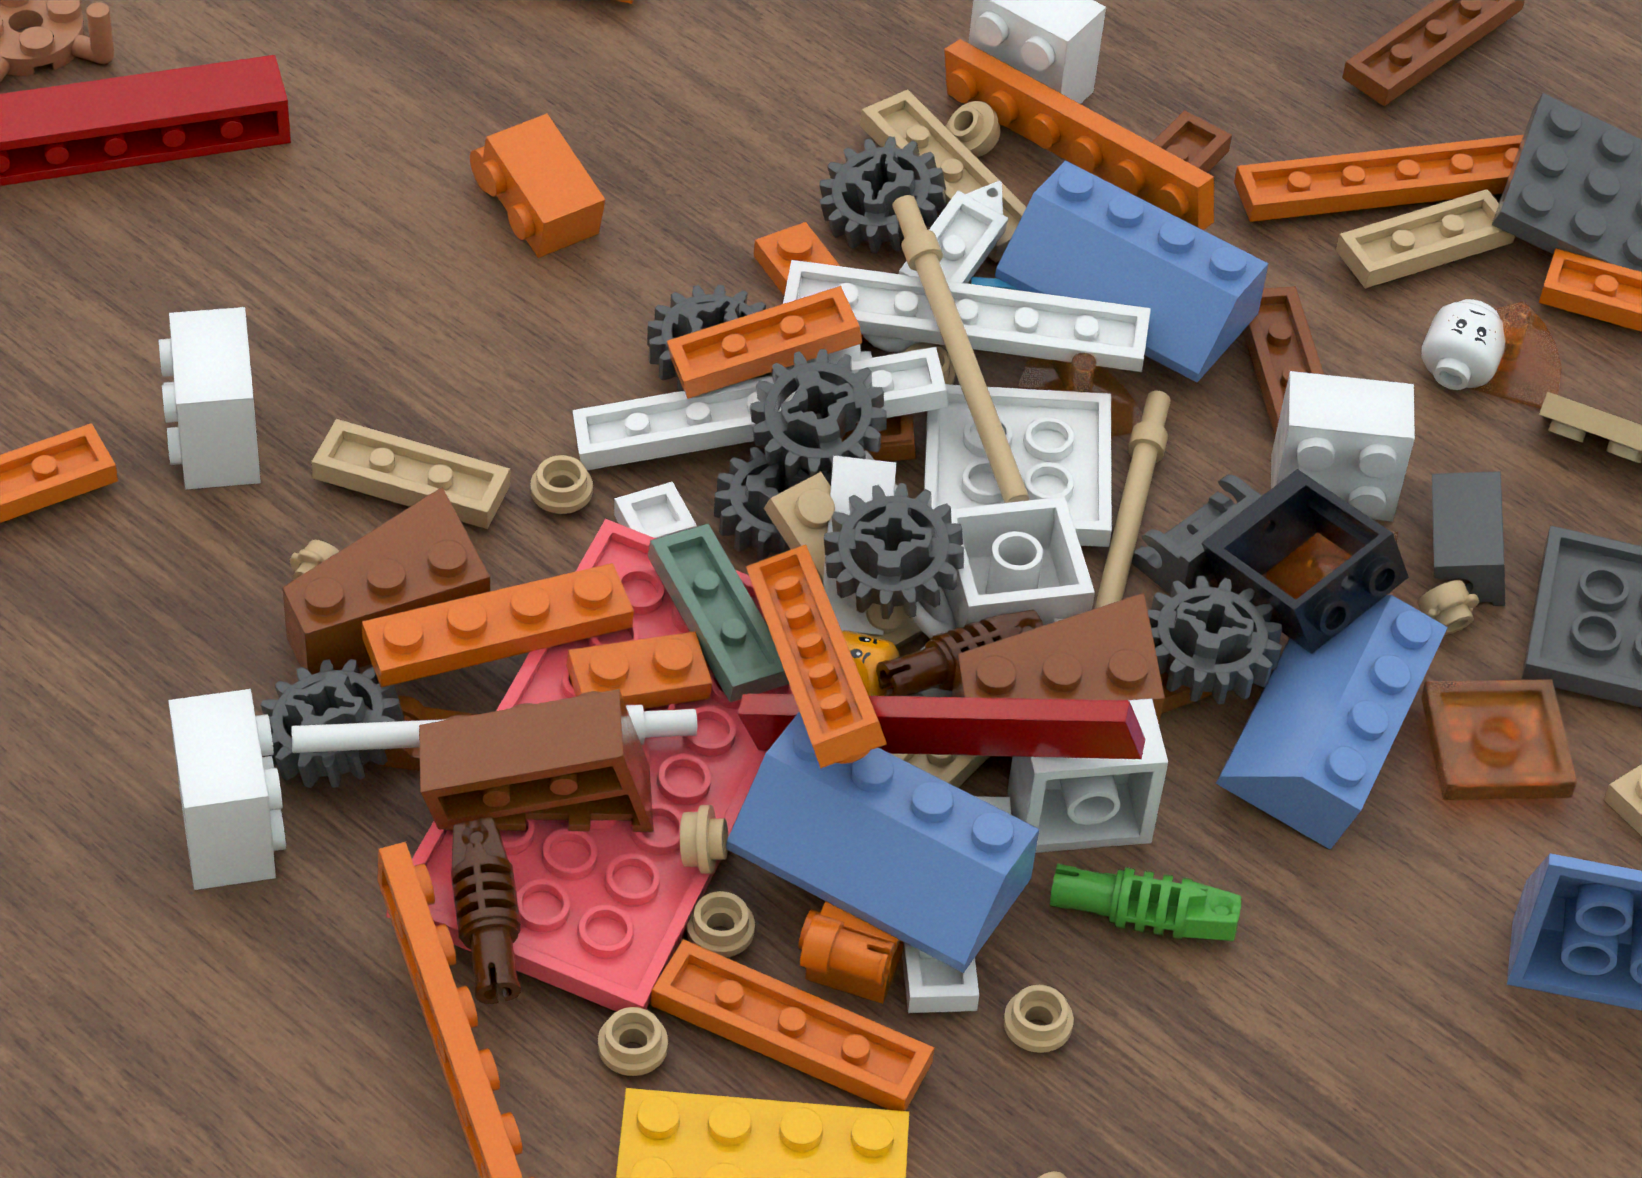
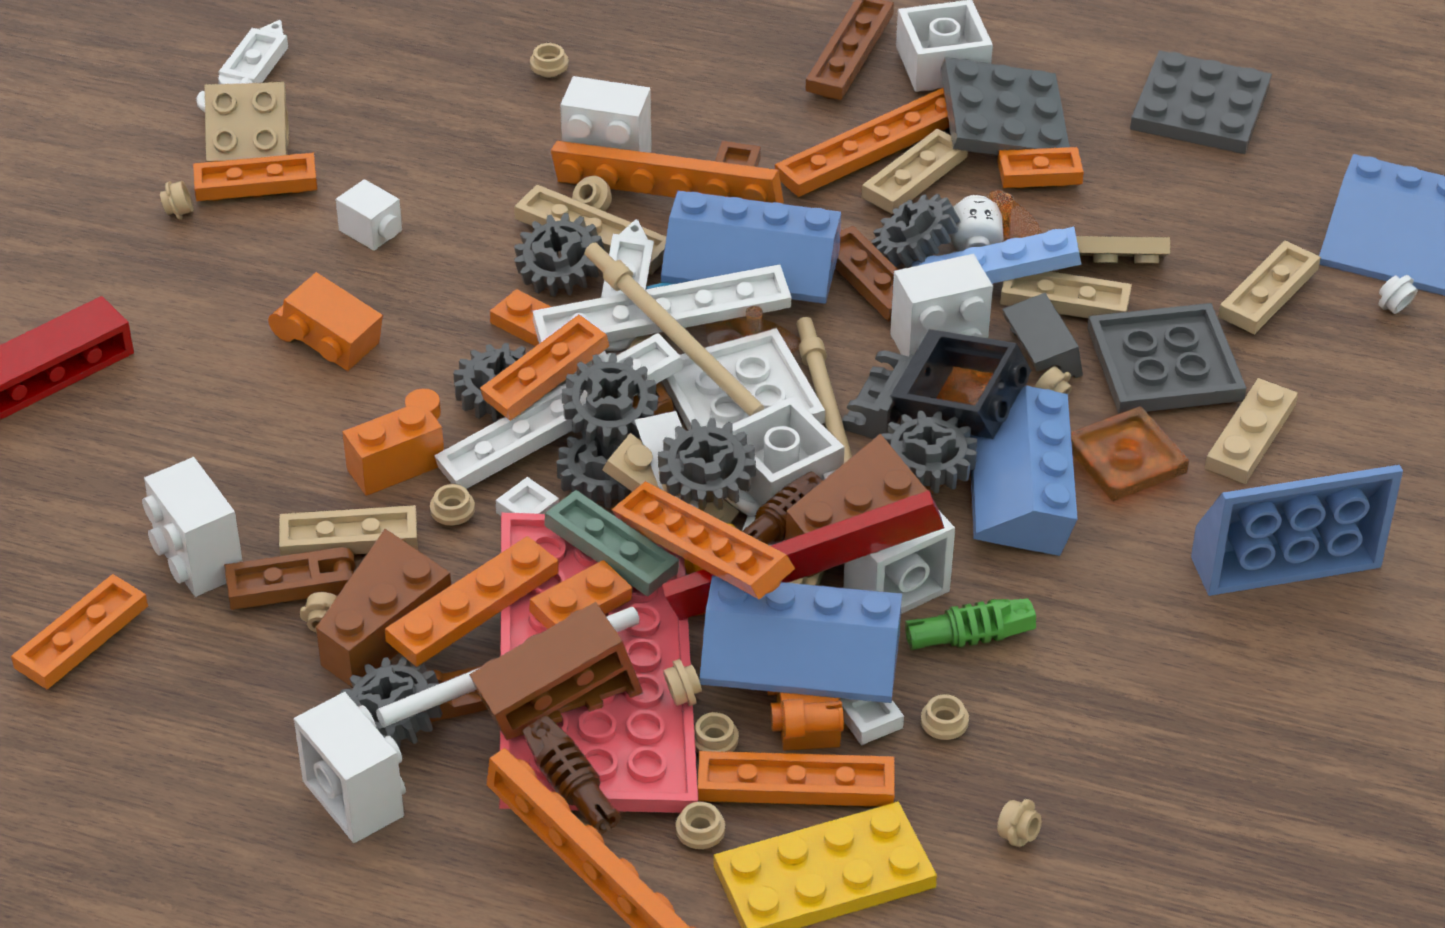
camera: 20 degrees left, 5 degrees down
(300, 505) = (288, 577): none -> dark orange plate
(534, 377) = (395, 444): none -> orange hinge
(672, 58) = (369, 214): none -> white brick
(1375, 323) = (916, 230): none -> dark grey gear
(1488, 407) = (1023, 255): none -> light blue plate
(1540, 480) = (1070, 293): none -> tan plate
(1557, 56) = (937, 32): none -> white brick

